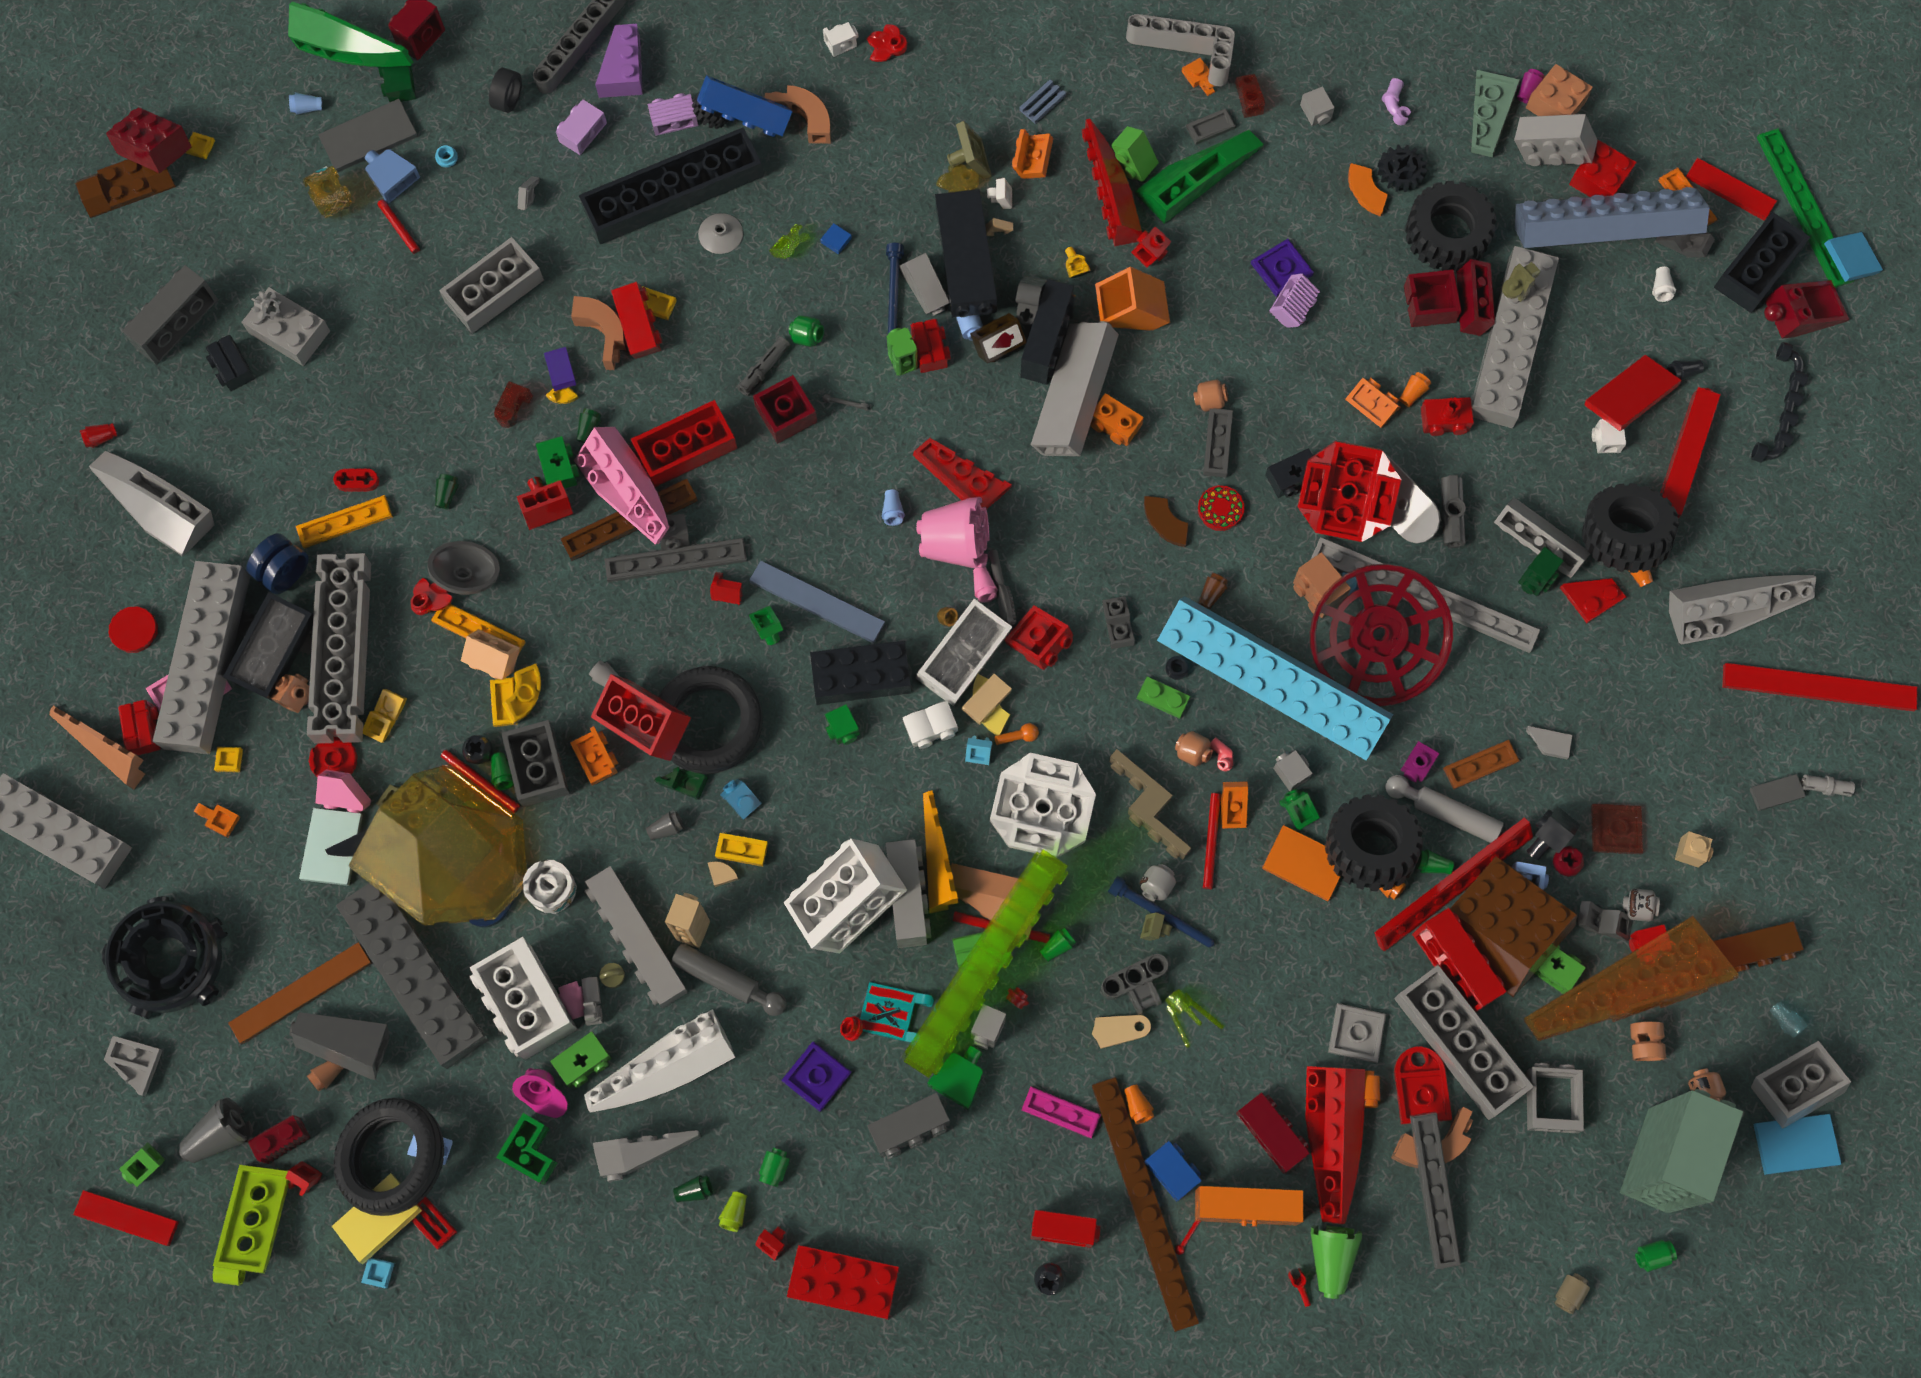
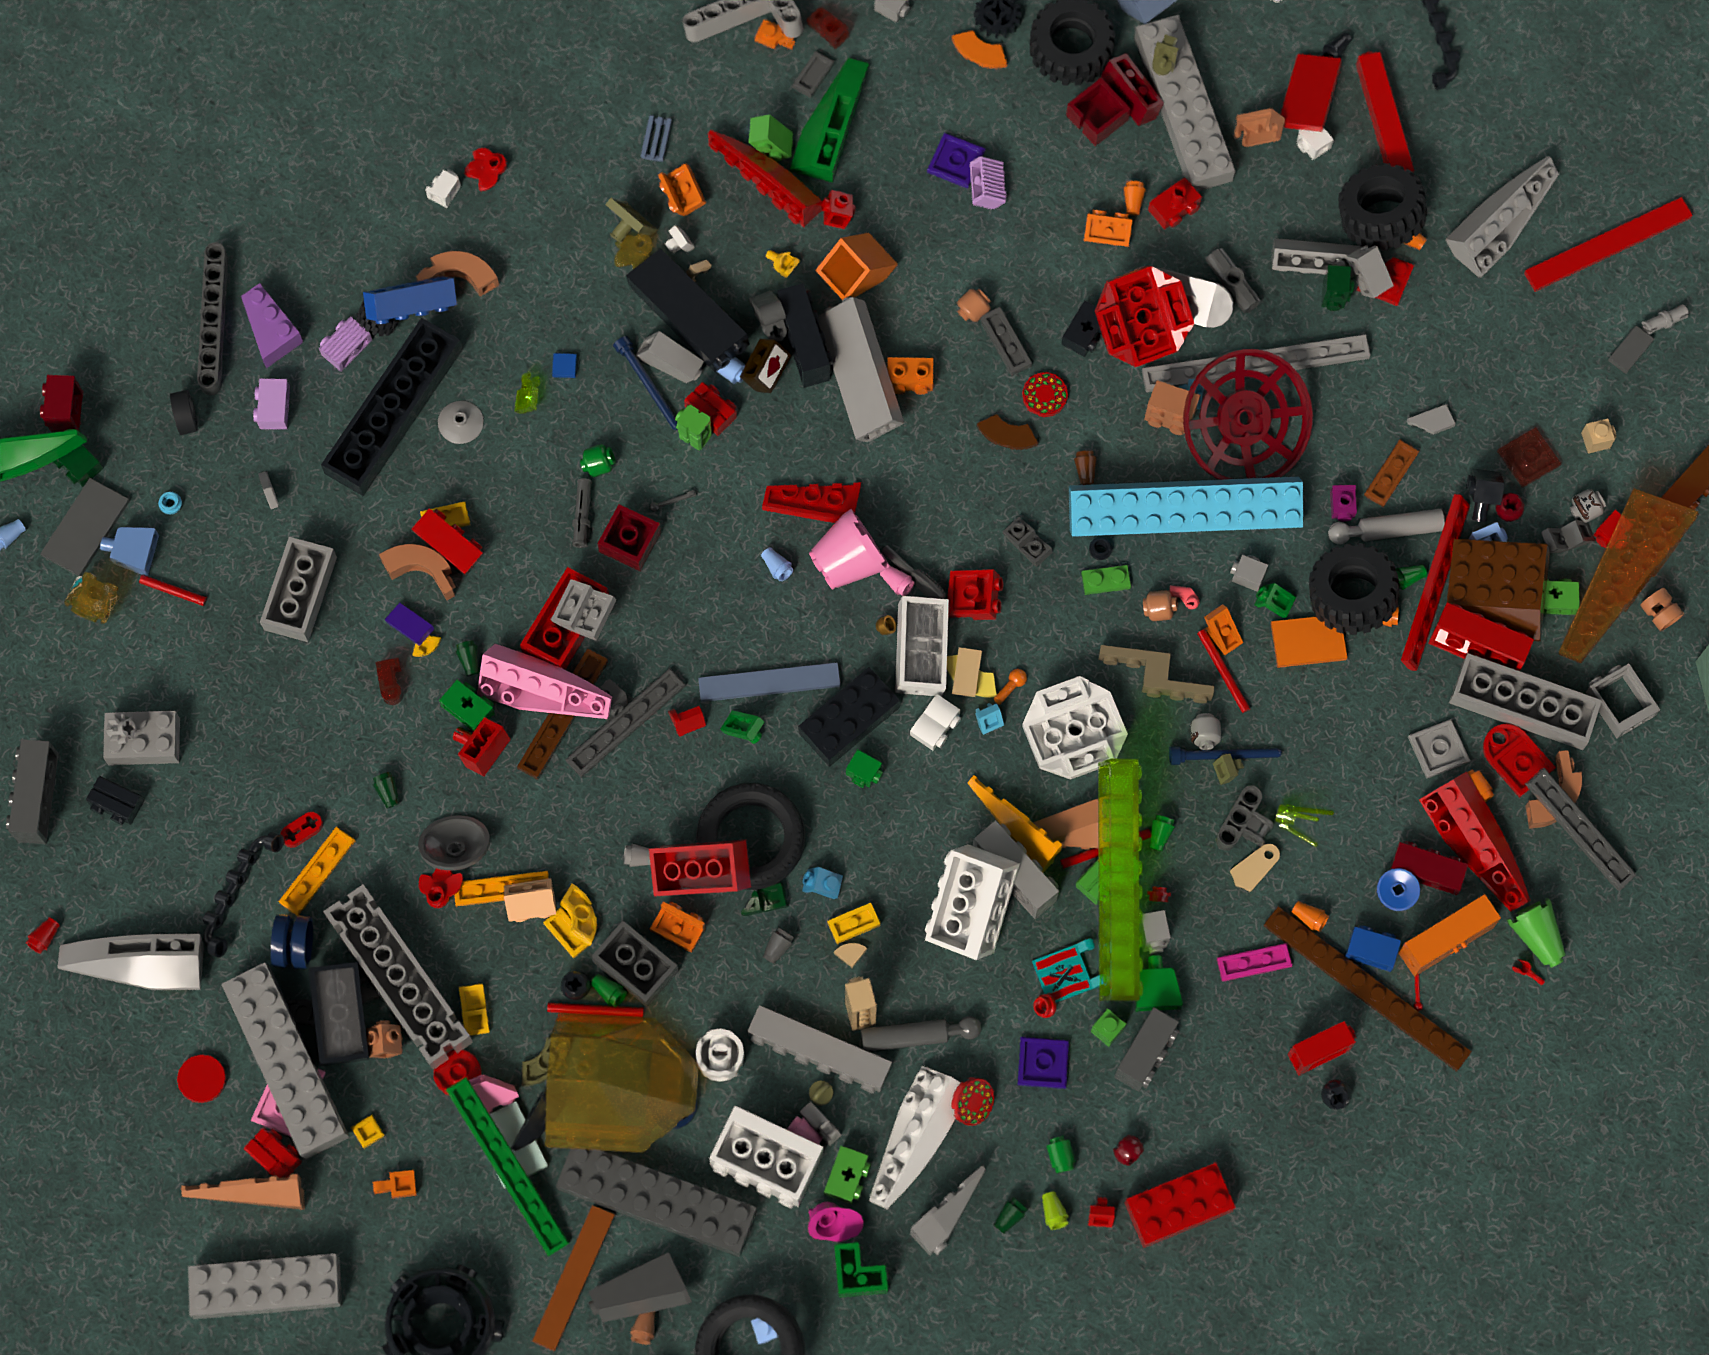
camera: 35 degrees left, 0 degrees up
(219, 529) = (225, 899): none -> black bar
(310, 863) = (507, 1166): none -> green tile
(700, 442) = (583, 609): none -> light grey slope
(730, 1069) = (972, 1101): none -> tile
(834, 1203) = (1128, 1150): none -> dark red piece
(891, 1084) = (1108, 1027): none -> bright green brick
(1221, 1132) = (1388, 895): none -> blue piece
(1566, 394) = (1259, 127): none -> nougat hinge
(1579, 576) = (1369, 271): none -> light grey hinge

